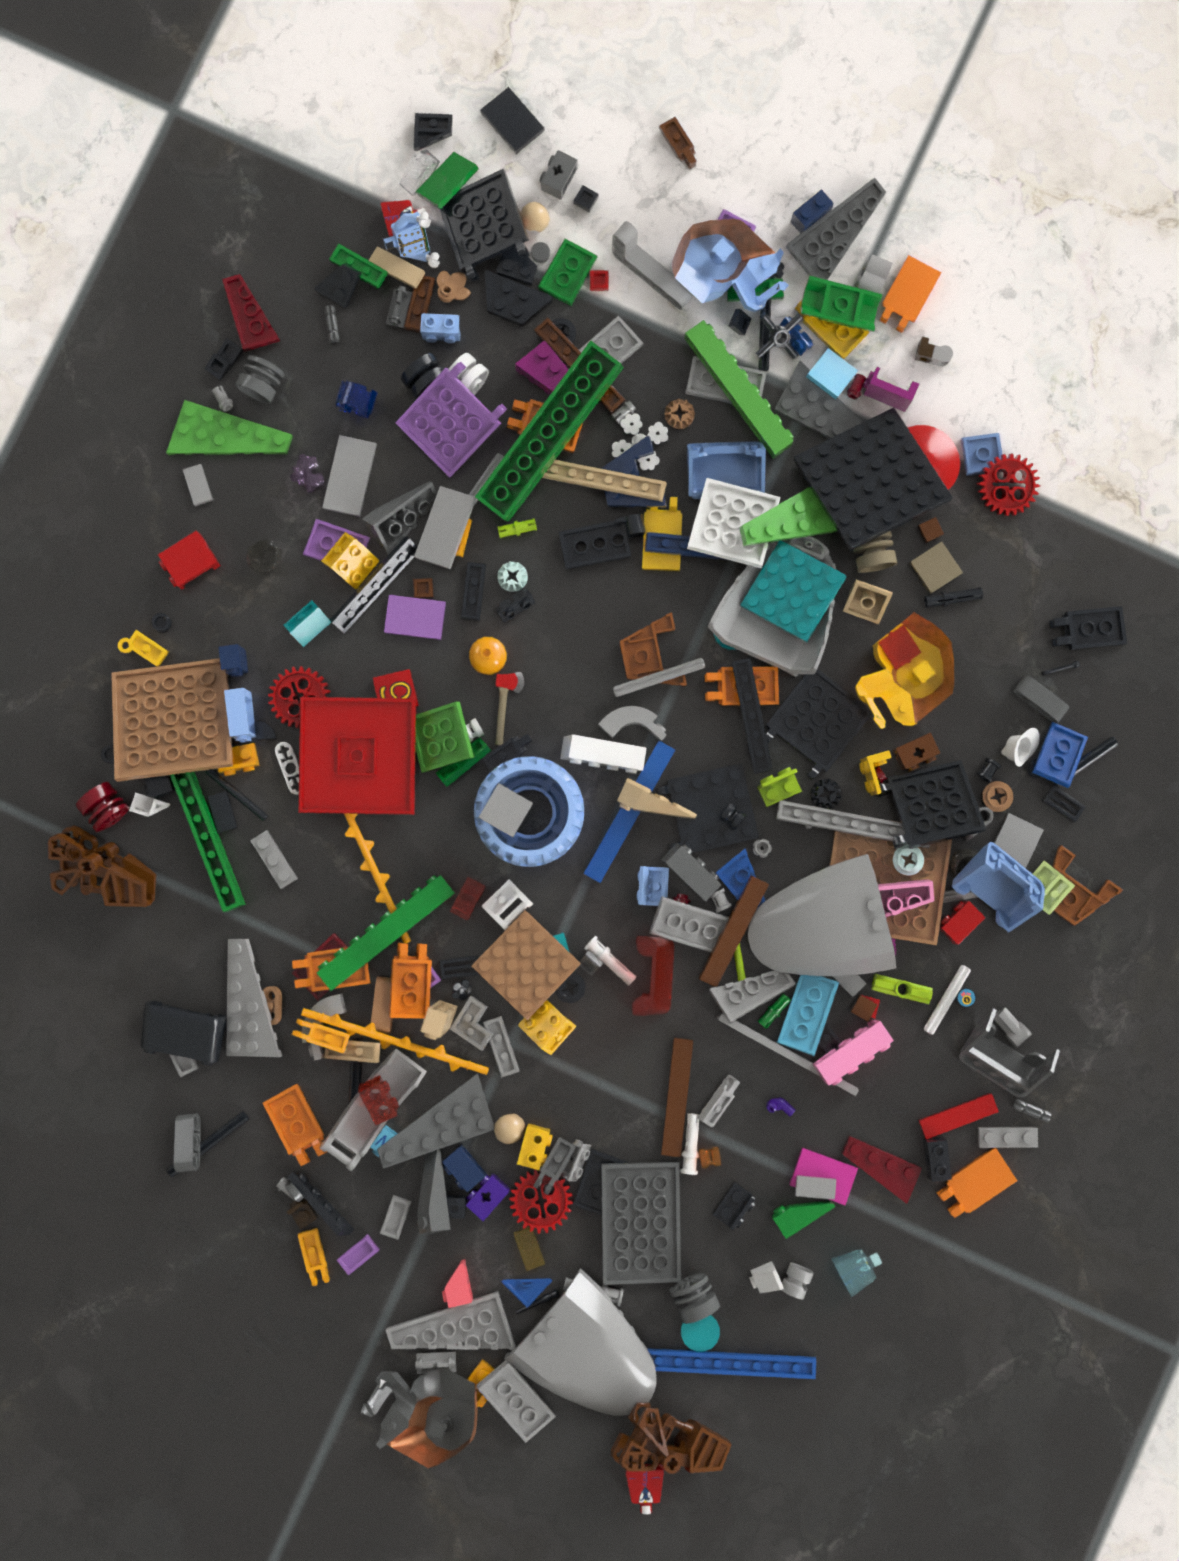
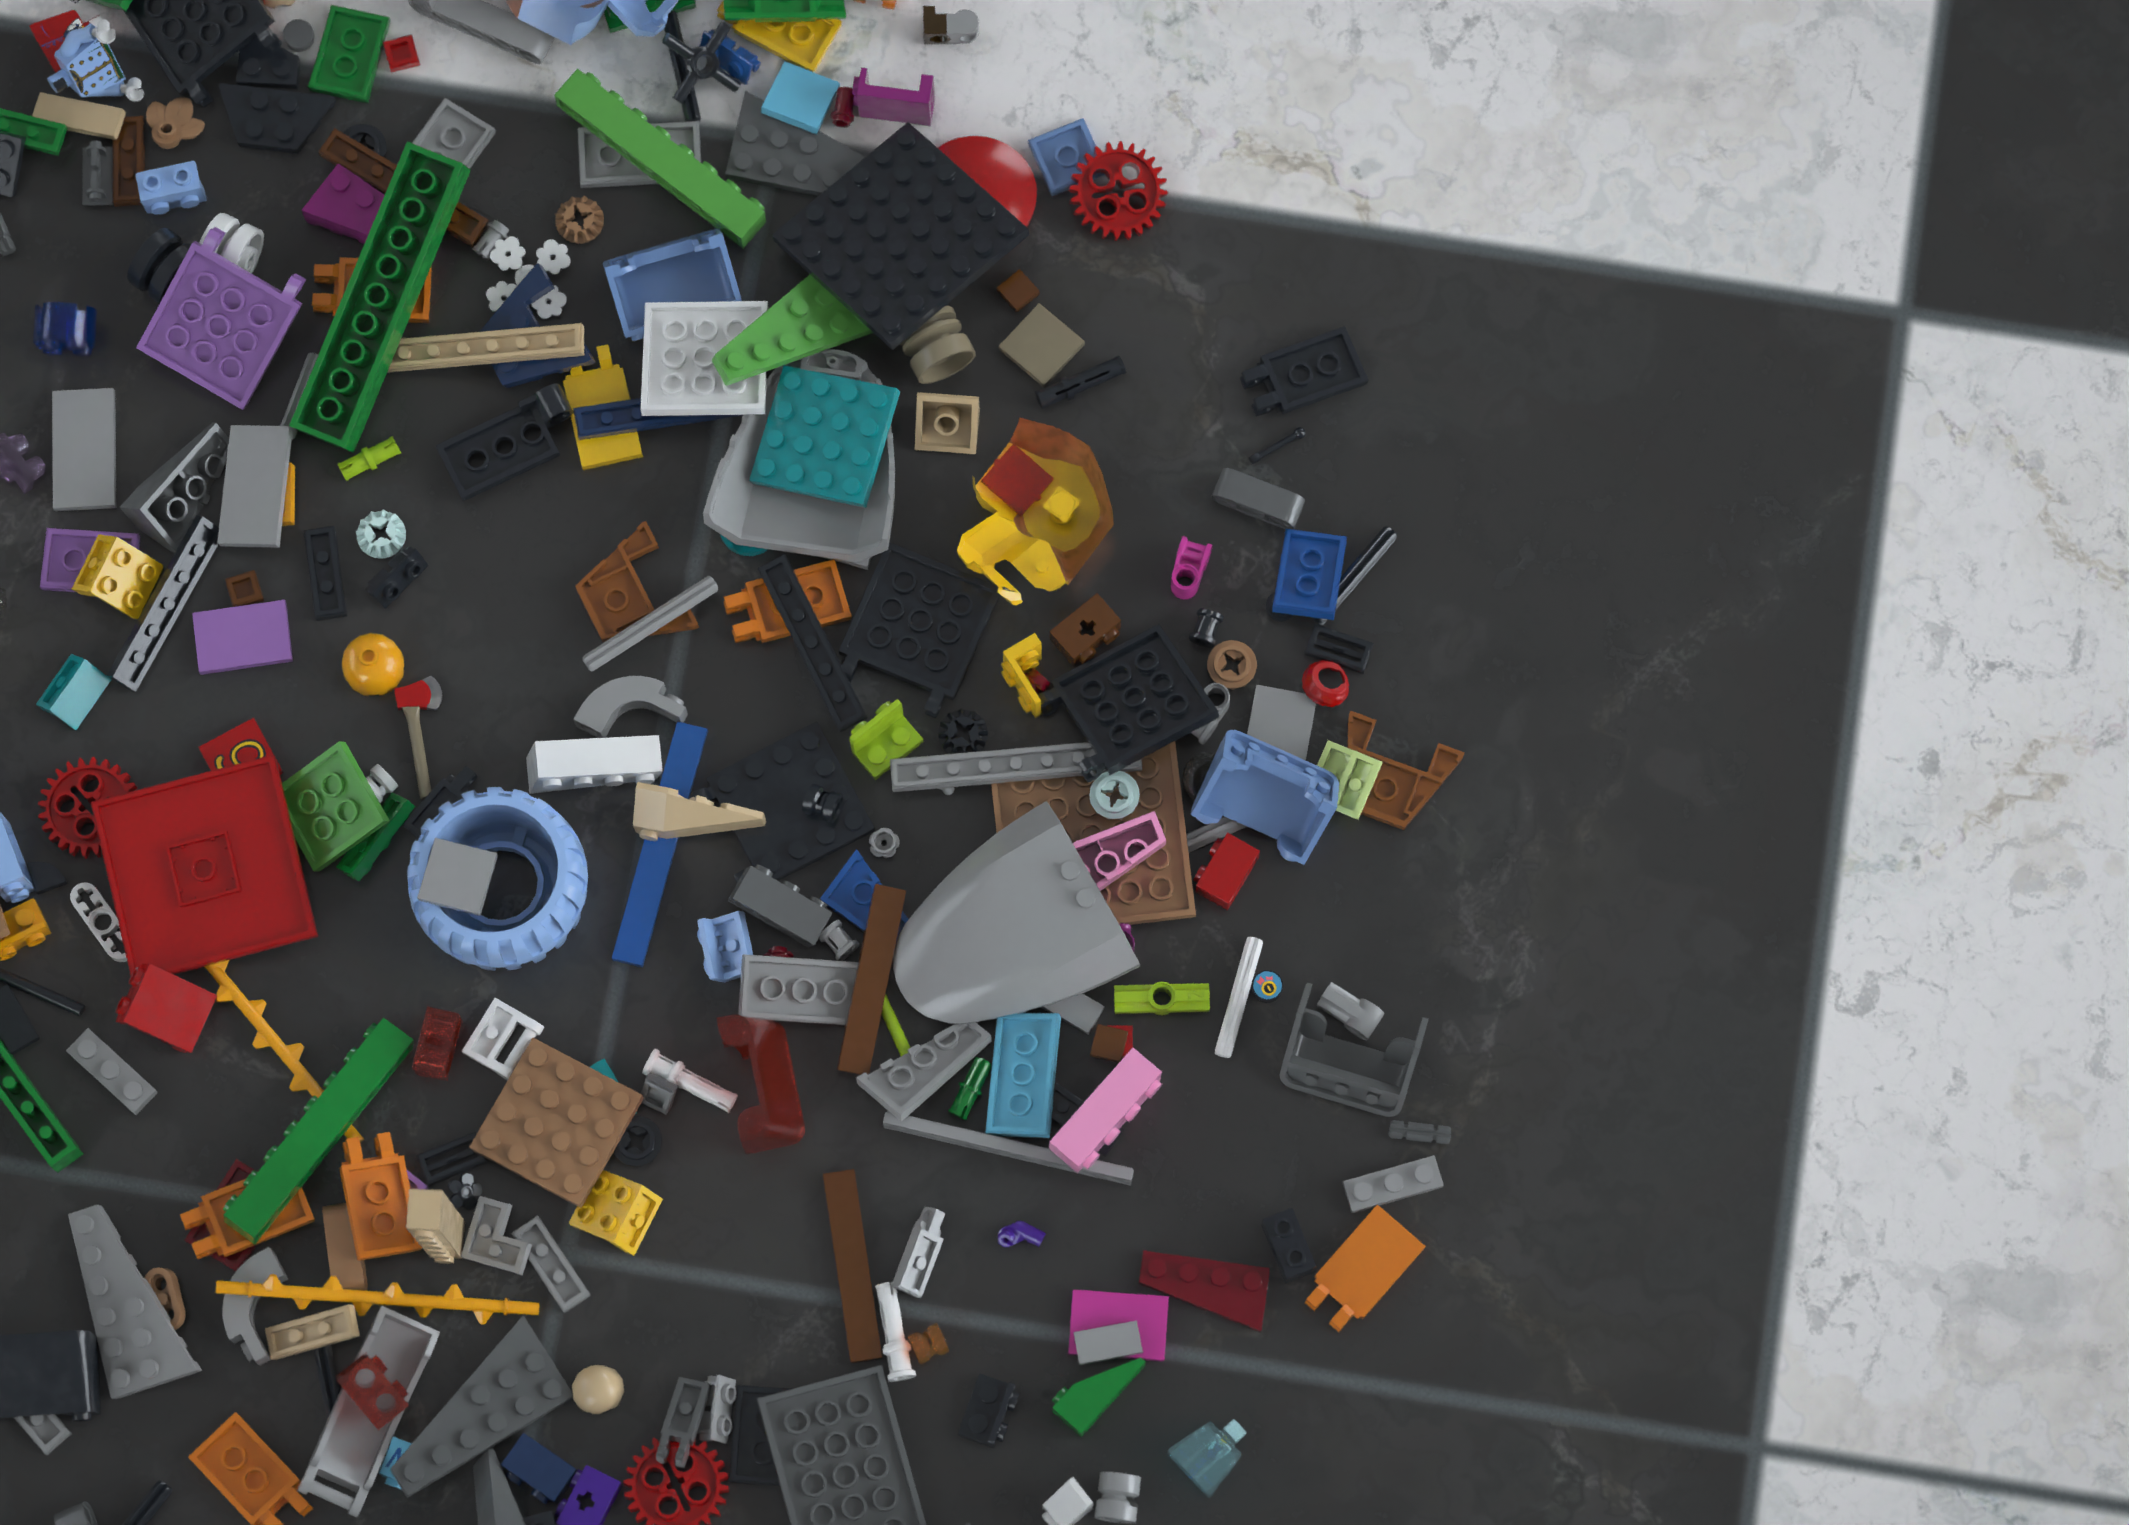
camera: 15 degrees left, 10 degrees down
(313, 833) = (165, 1007): none -> red panel
(323, 1036) = (259, 1316): light orange hinge -> none
(534, 1146) = (643, 1403): yellow brick -> none
(740, 322) = (636, 58): black plate -> none
(958, 1116) = (1306, 1172): red tile -> none
(991, 727) = (1190, 563): none -> dark pink piece
(1021, 747) = (1248, 577): white piece -> none
(1043, 823) = (1317, 692): none -> red piece

